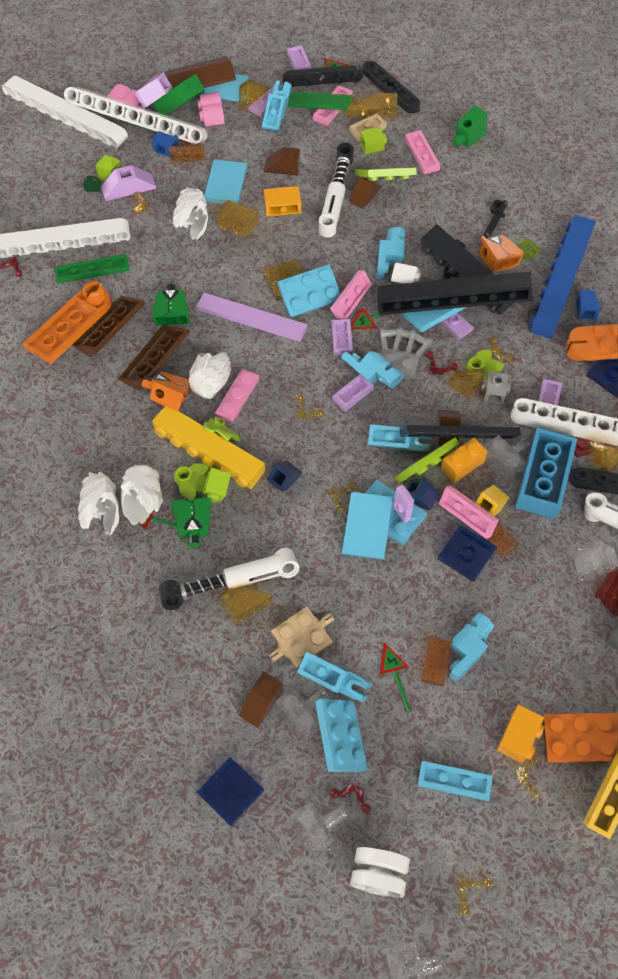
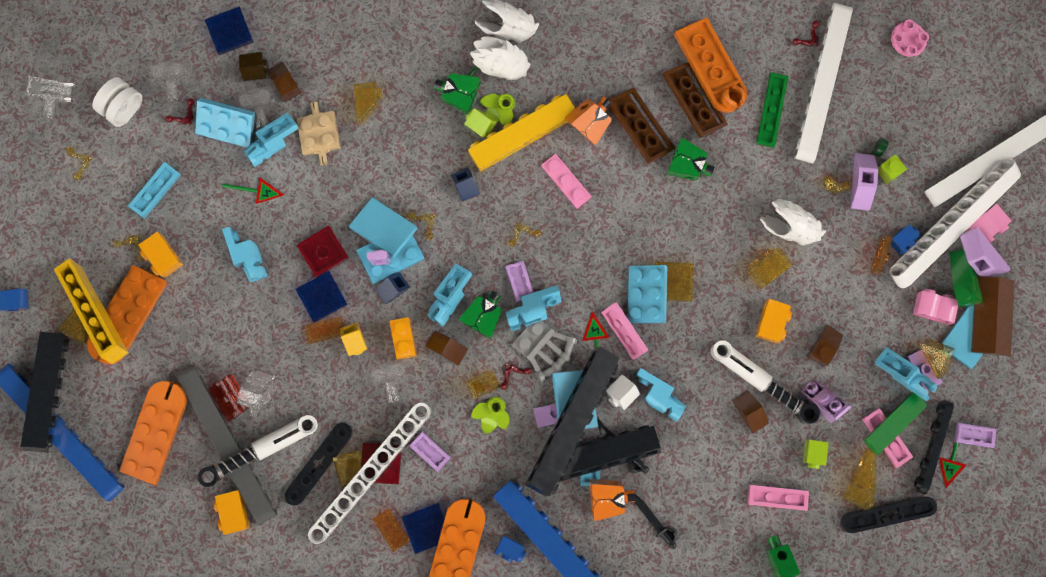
camera: 110 degrees right, 20 degrees up
(209, 374) = (588, 158): white head -> none
(218, 426) = (531, 149): lime plate -> none
(225, 181) = (828, 279): medium azure tile -> none
(252, 317) = (646, 231): lavender tile -> none
(261, 739) = (253, 66): none -> dark brown brick
(282, 564) = (383, 142): piece -> none
(331, 137) = (829, 404): none -> lavender slope
(341, 336) = (584, 301): lavender plate -> none
(368, 123) = (839, 459): tan plate -> none
(388, 173) = (763, 438): lime wing -> none
(401, 406) = (483, 314): none -> green torso
(422, 573) = (322, 251): none -> dark red plate
(432, 431) = (425, 345): black tile -> none
(432, 459) = (415, 304): lime wing -> none
(436, 661) = (247, 224): clear orange plate -> none
(468, 512) = (353, 315): bright pink plate -> none
(495, 388) = (453, 407): light grey brick -> none
(497, 351) = (499, 433): clear yellow piece -> none
(529, 249) = (604, 533): clear neon green tile -> none
(546, 473) = (355, 400): dark azure brick -> none

